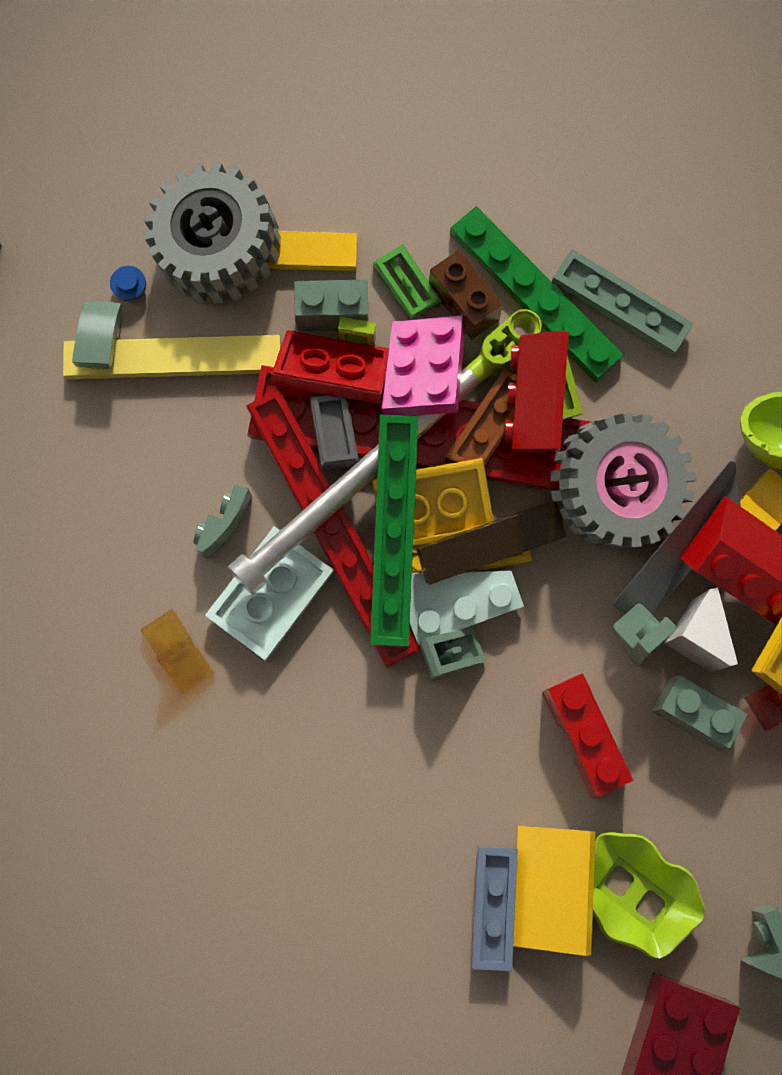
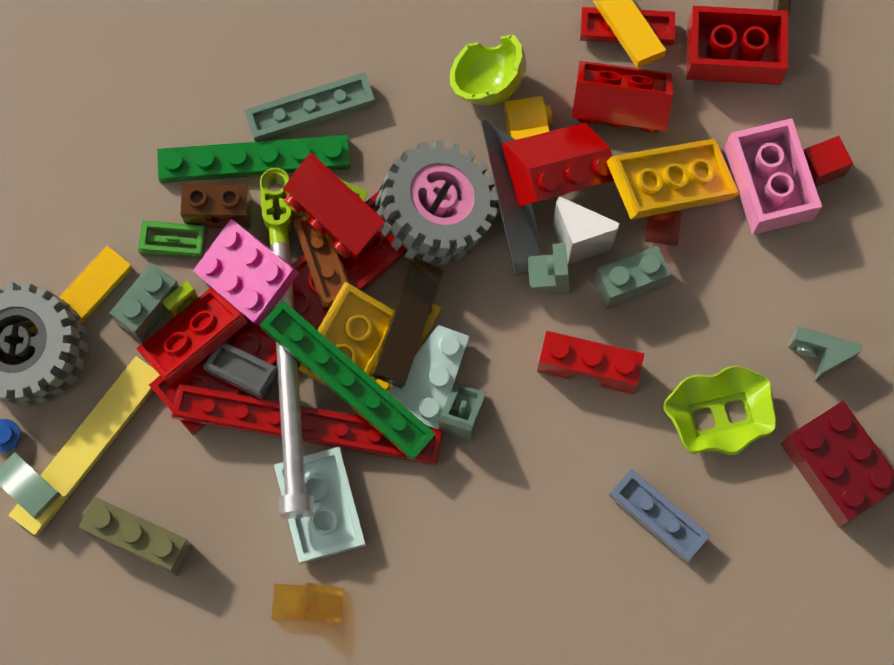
camera: 50 degrees left, 5 degrees down
(121, 460) = (135, 535): none -> olive arch
(216, 531) = (244, 511): sand green slope -> none
(554, 890) = (676, 463): yellow tile -> none

